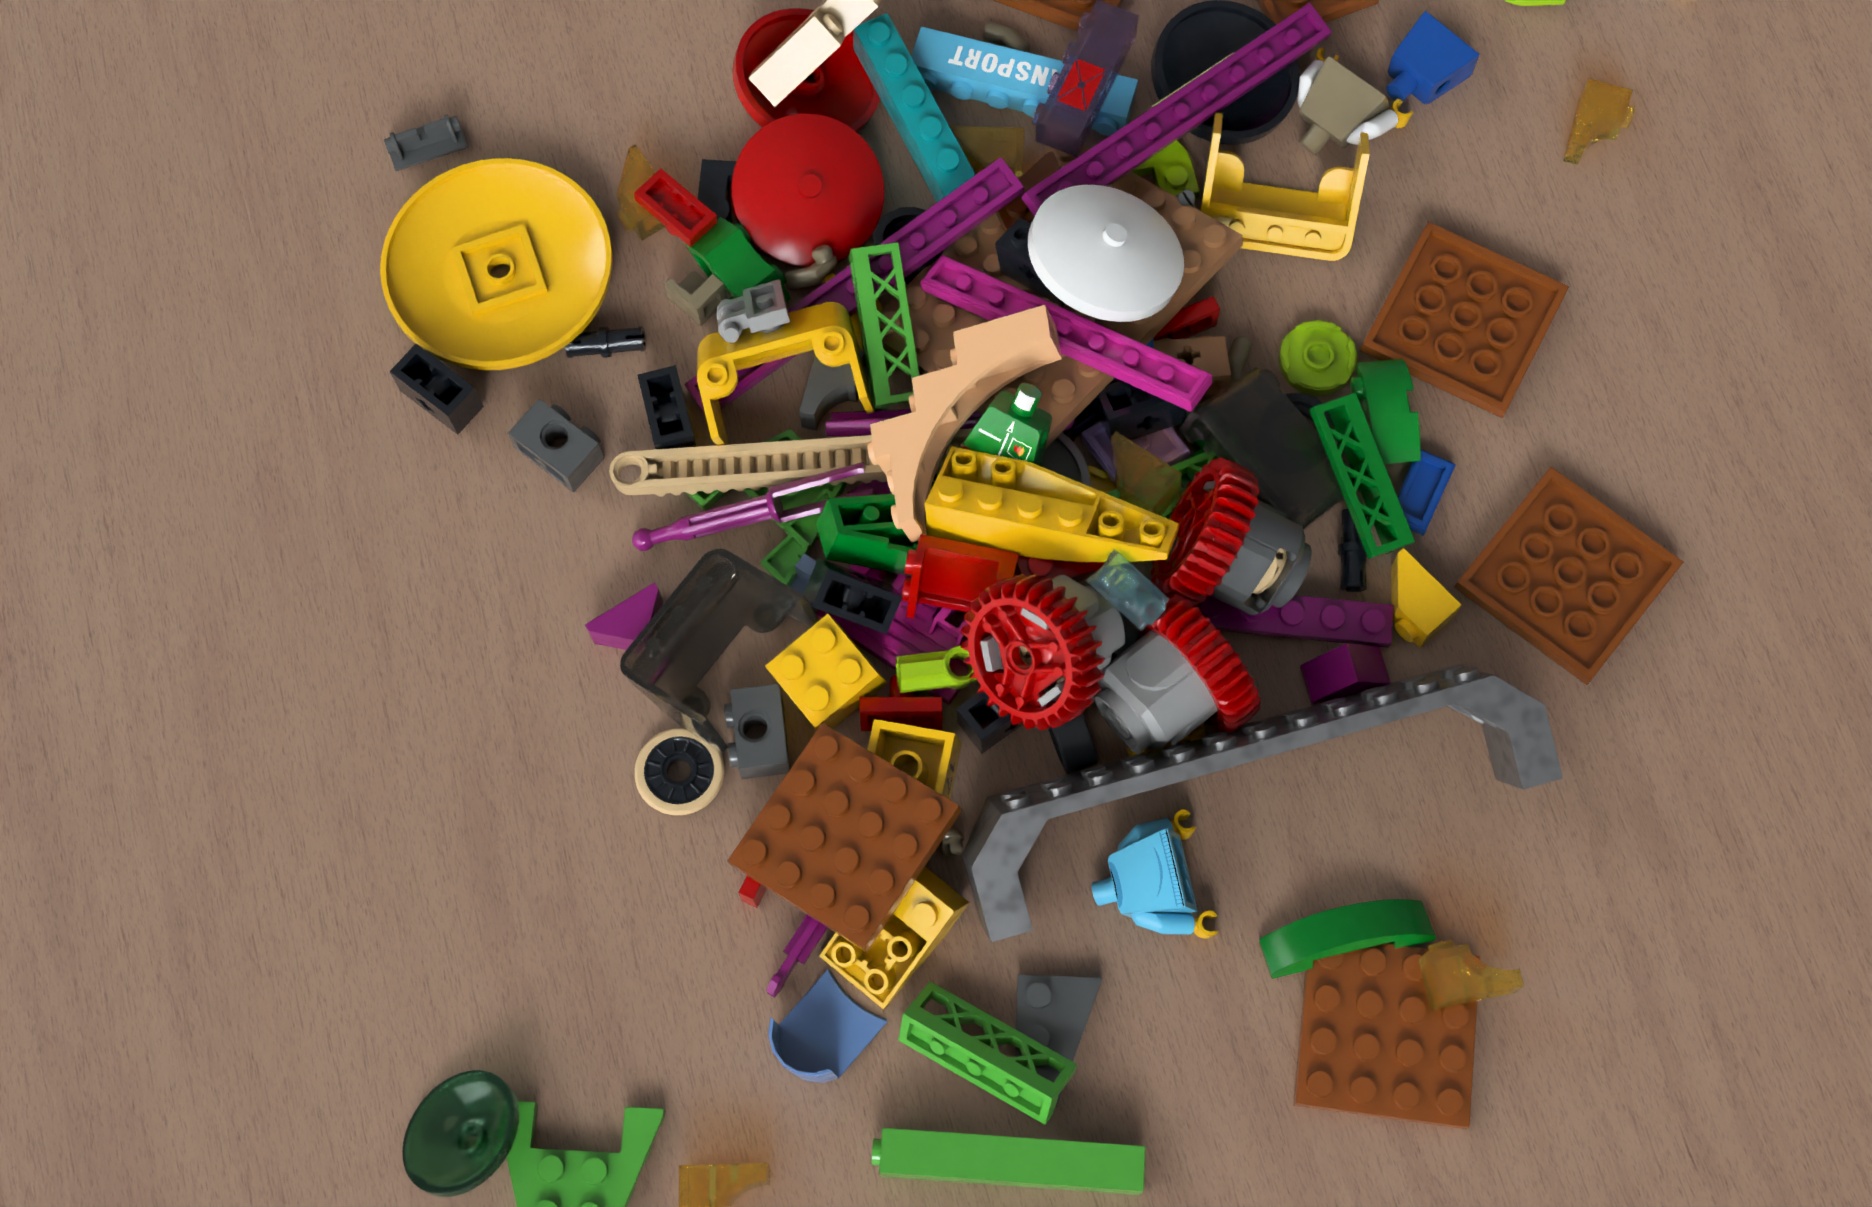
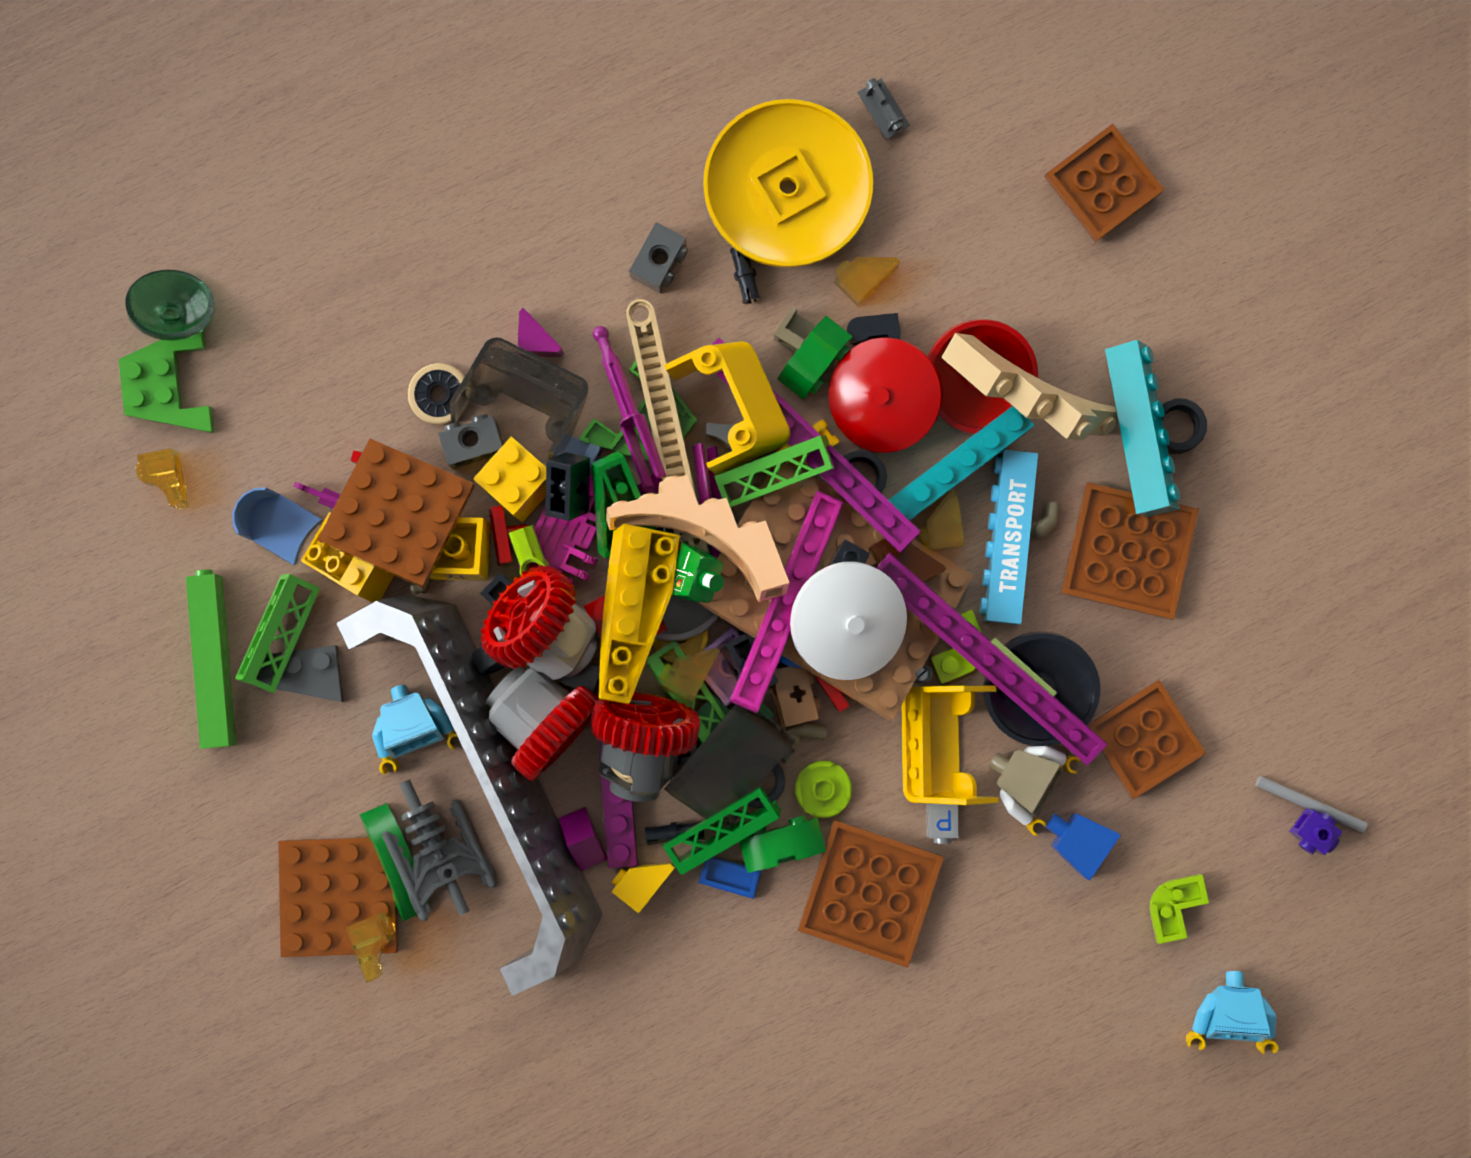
camera: 80 degrees right, 15 degrees up
(436, 388) = (683, 164): black brick -> none
(666, 409) = (691, 330): black brick -> none
(675, 207) = (849, 301): red tile -> none
(759, 308) = (772, 382): light grey plate -> none
(814, 274) = (822, 413): dark tan arm -> none
(952, 573) = (590, 556): red panel -> none
(1085, 78) = (1008, 584): clear purple brick -> none
(1129, 591) = (580, 677): clear light blue hips -> none
(1352, 867) = (440, 860): none -> dark grey bar
(1381, 217) = (941, 822): none -> light grey brick
(1568, 575) = (681, 988): dark orange plate -> none
(1598, 116) = (1061, 977): clear yellow arch -> none

